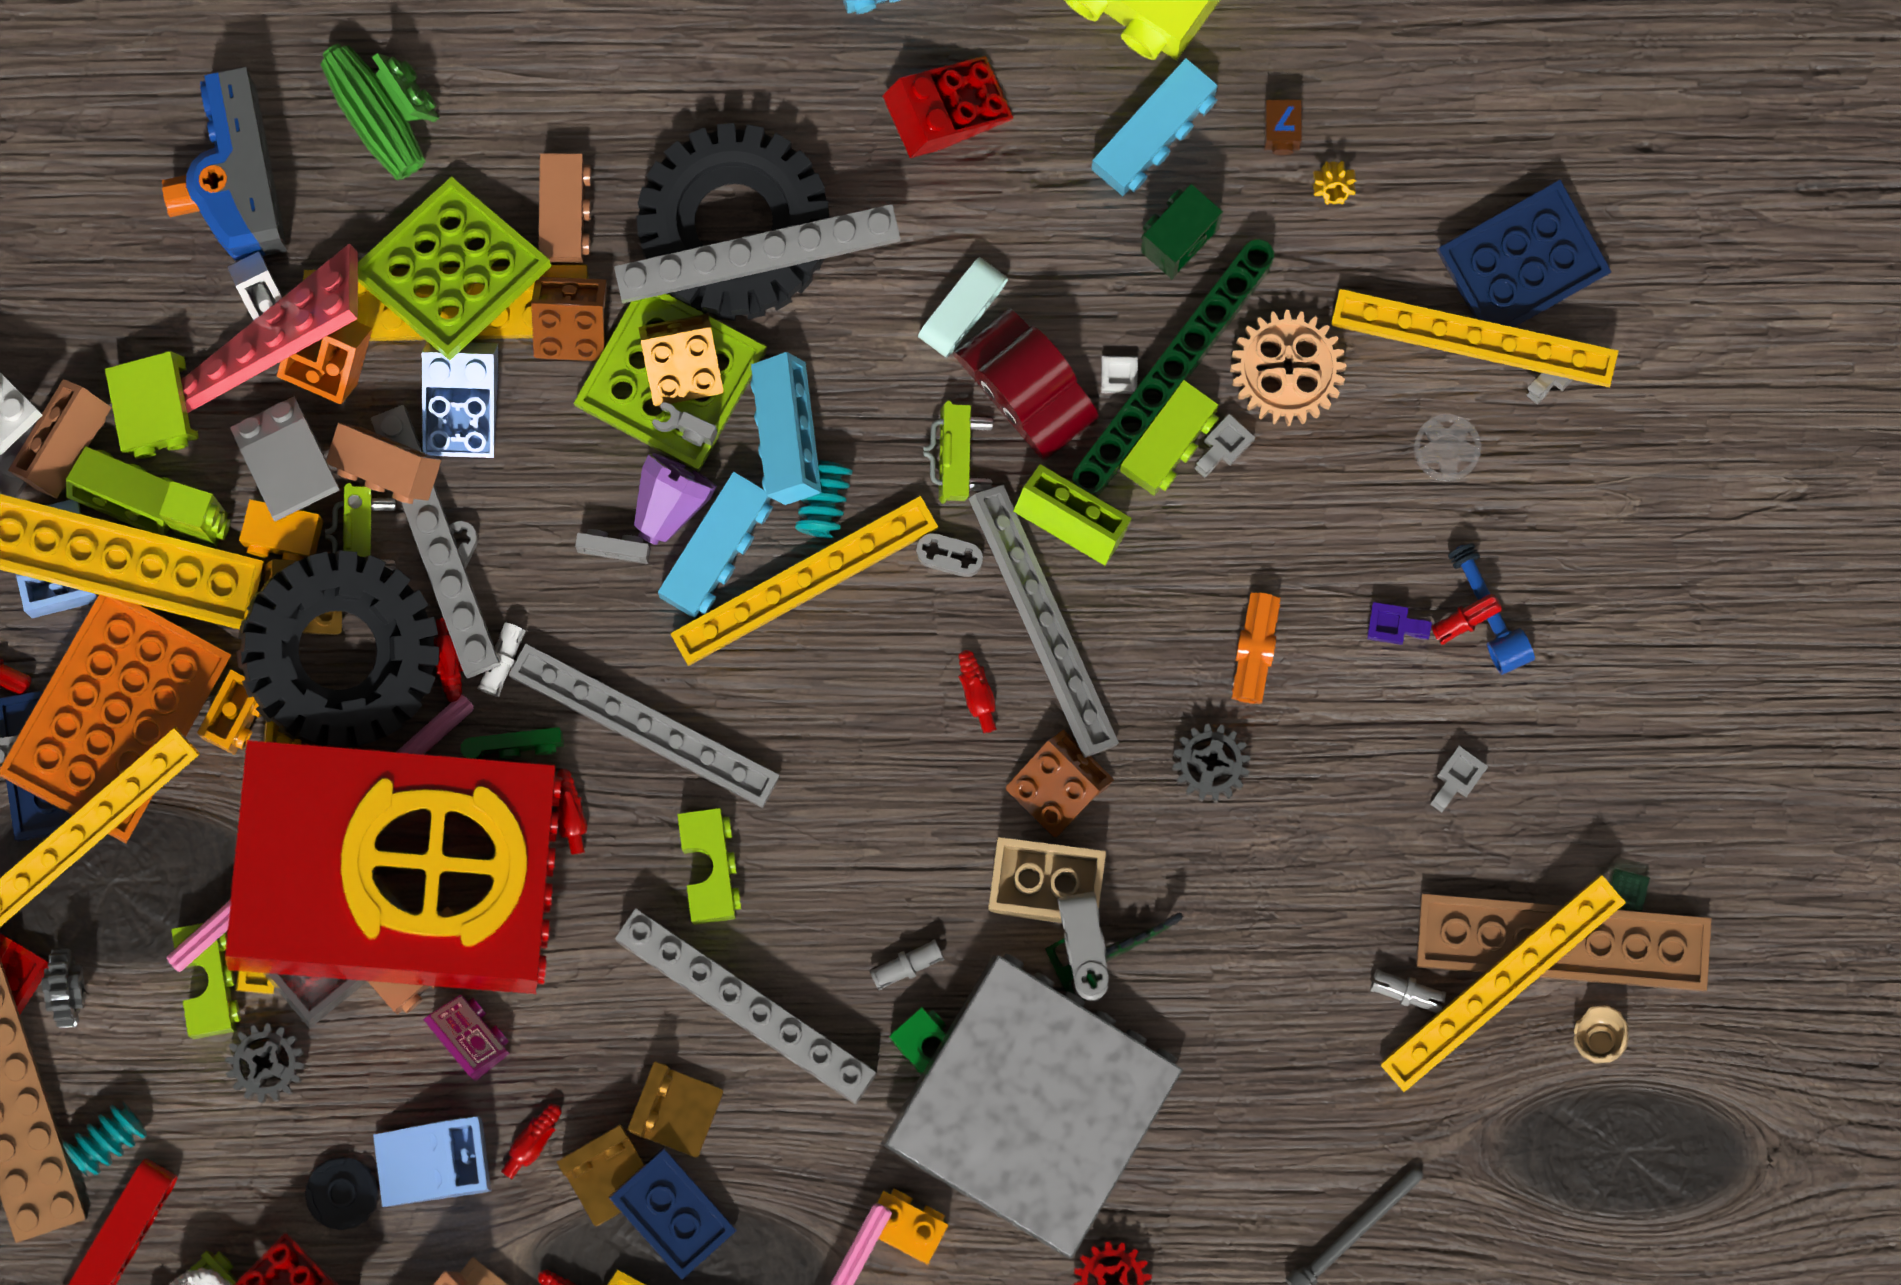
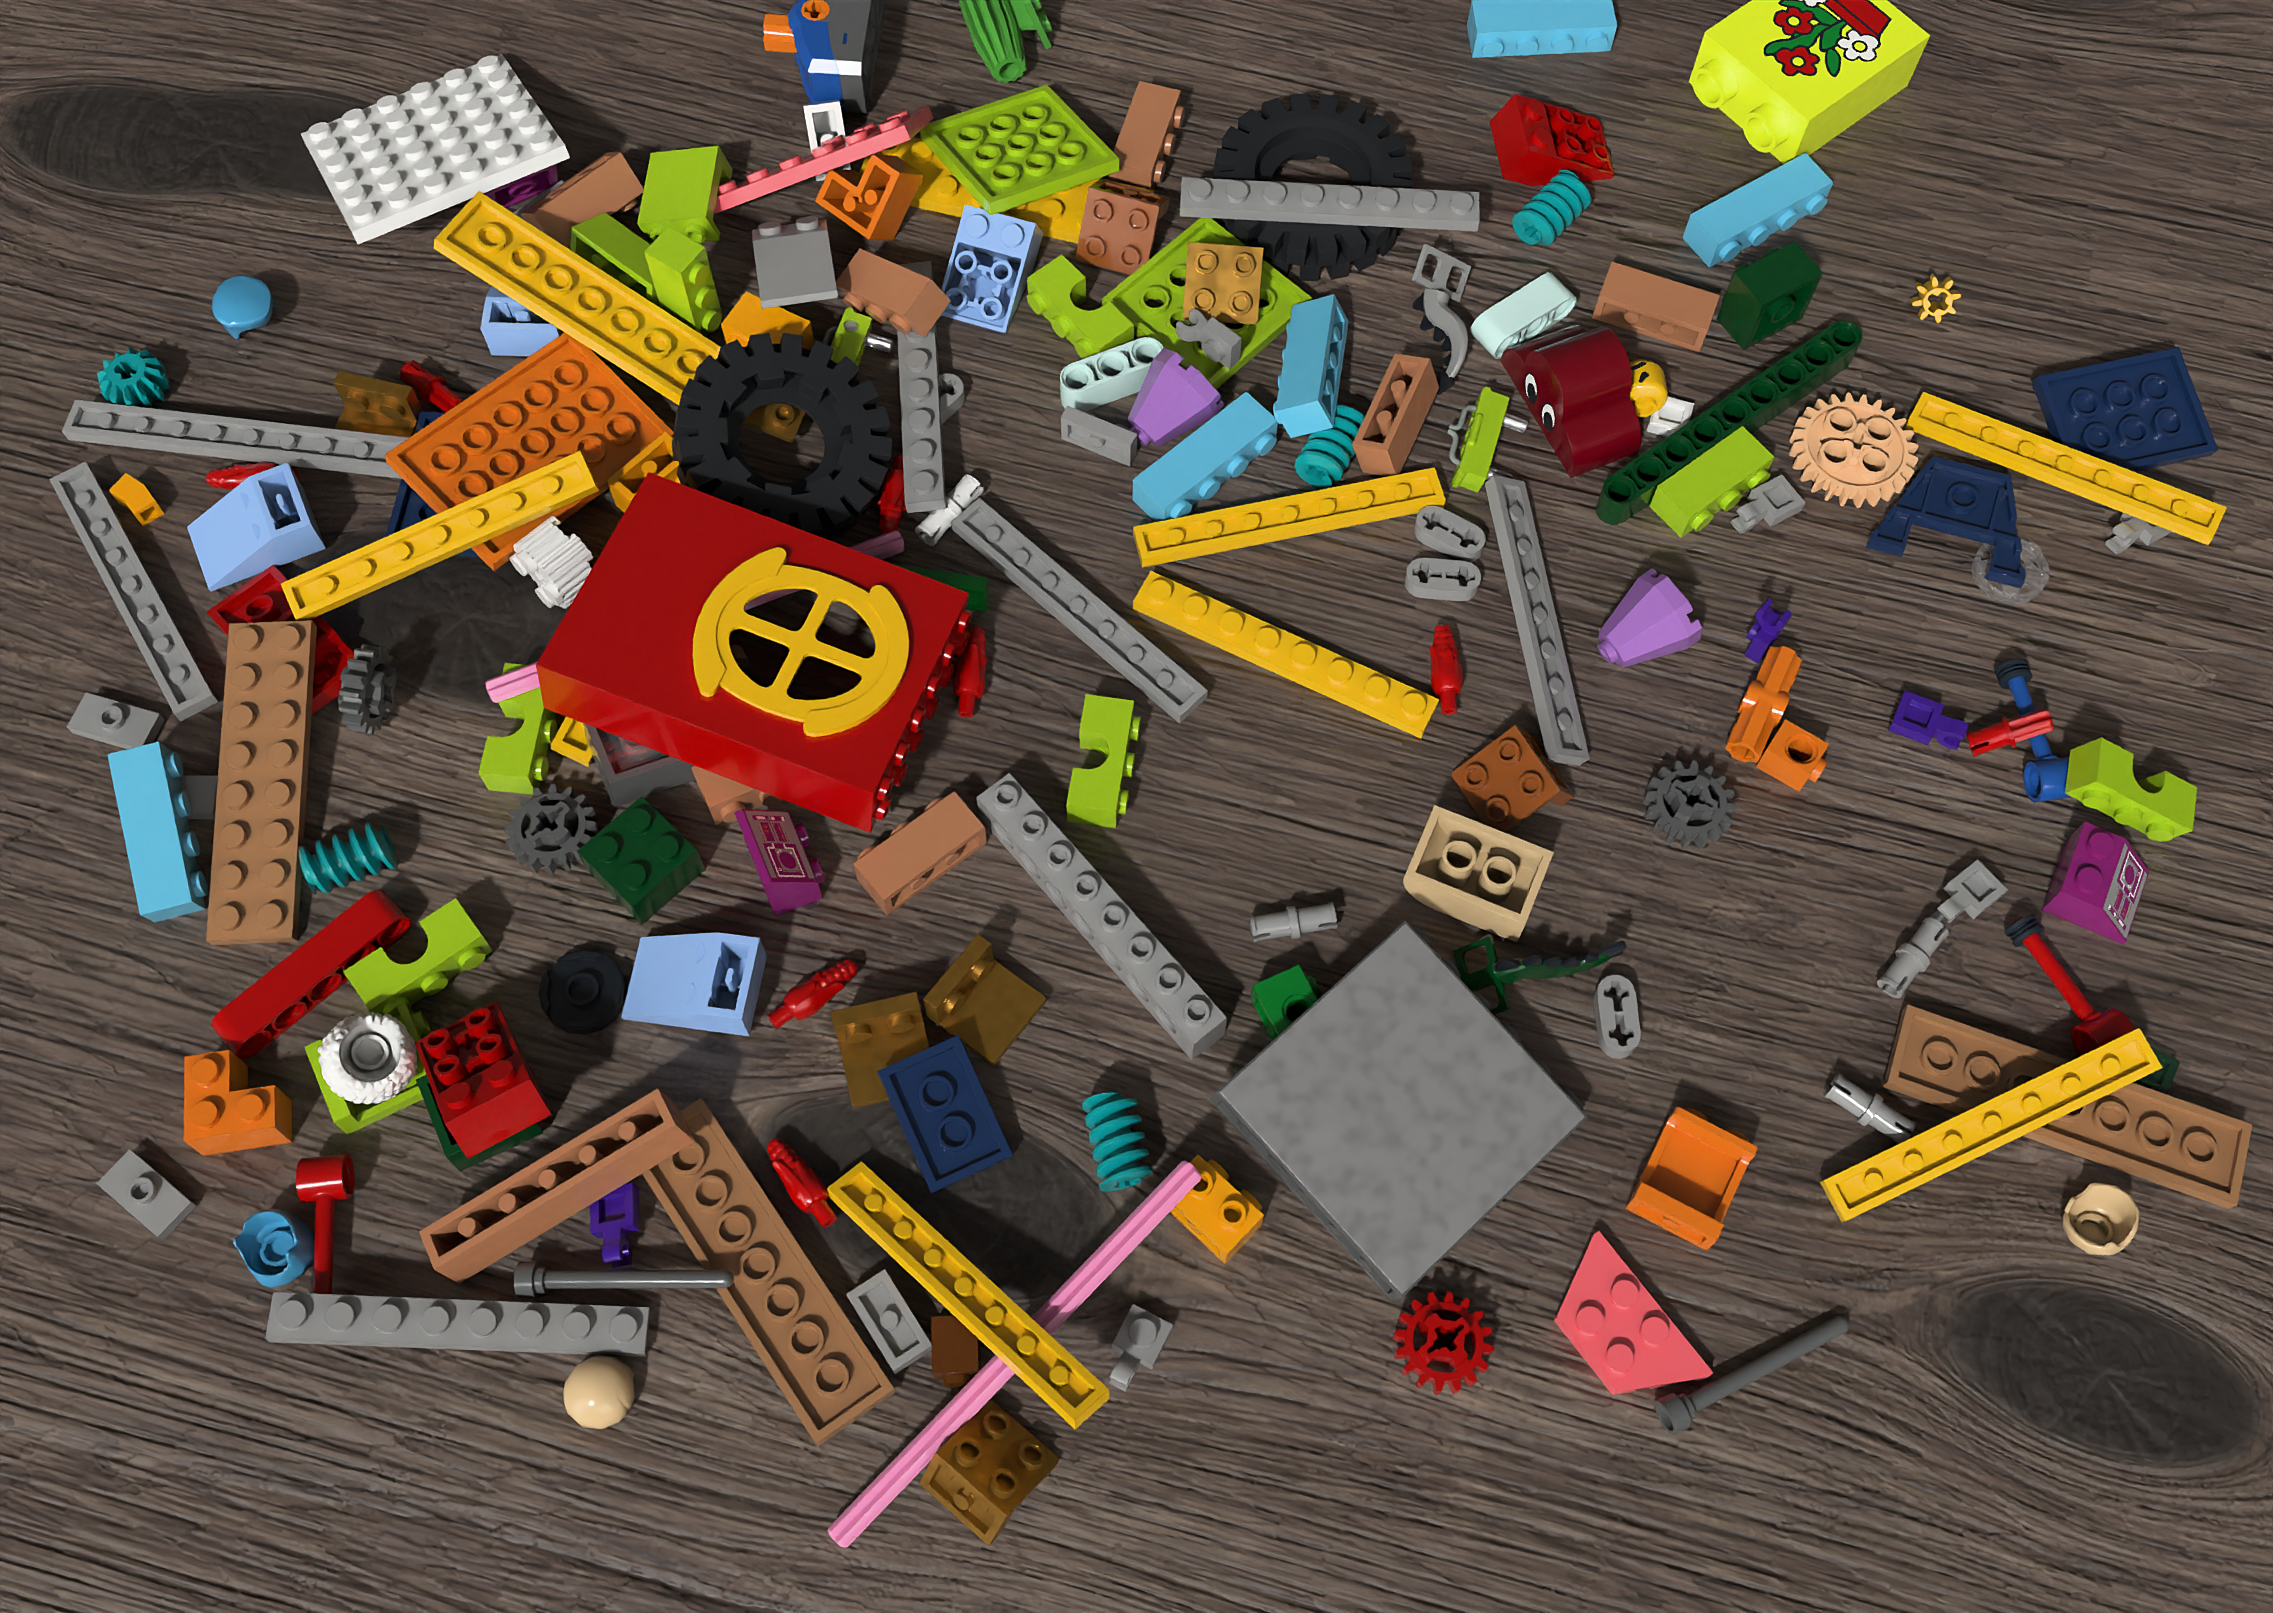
camera: 15 degrees right, 15 degrees down
(179, 823) = (554, 562): none -> white brick
(223, 1187) = (452, 948): none -> lime arch
(351, 1069) = (641, 860): none -> dark green brick
(579, 993) = (919, 852): none -> nougat brick
(581, 442) = (1058, 291): none -> lime arch
(600, 497) = (1094, 373): none -> light aqua beam
(816, 1195) = (1115, 1141): none -> teal piece
(834, 715) = (1286, 654): none -> yellow plate
(873, 455) = (1395, 415): none -> nougat brick
(884, 330) = (1438, 314): none -> light grey piece
(954, 611) = (1442, 579): none -> light grey beam
(963, 182) = (1551, 209): none -> teal piece
(1072, 514) = (1593, 521): lime brick -> none
(1081, 262) = (1655, 306): none -> nougat brick
(1084, 943) = (1508, 939): light grey piece -> none
(1087, 358) = (1648, 387): none -> yellow head
(1139, 604) = (1648, 623): none -> medium lavender cone
(1182, 972) = (1626, 1016): none -> light grey beam
(1243, 579) = (1765, 630): none -> dark purple plate
(1248, 1225) = (1623, 1327): none -> coral wing
(1274, 694) = (1796, 741): none -> orange brick
(1277, 1090) = (1691, 1177): none -> orange panel
(1282, 126) = (1890, 238): reddish brown brick -> none
(1391, 395) = (1961, 503): none -> dark blue wing
(1421, 848) = (1913, 957): none -> light grey pin
(1546, 651) = (2104, 780): none -> lime arch
(1563, 737) = (2097, 883): none -> magenta slope
(1578, 869) = (2095, 1027): none -> red piece

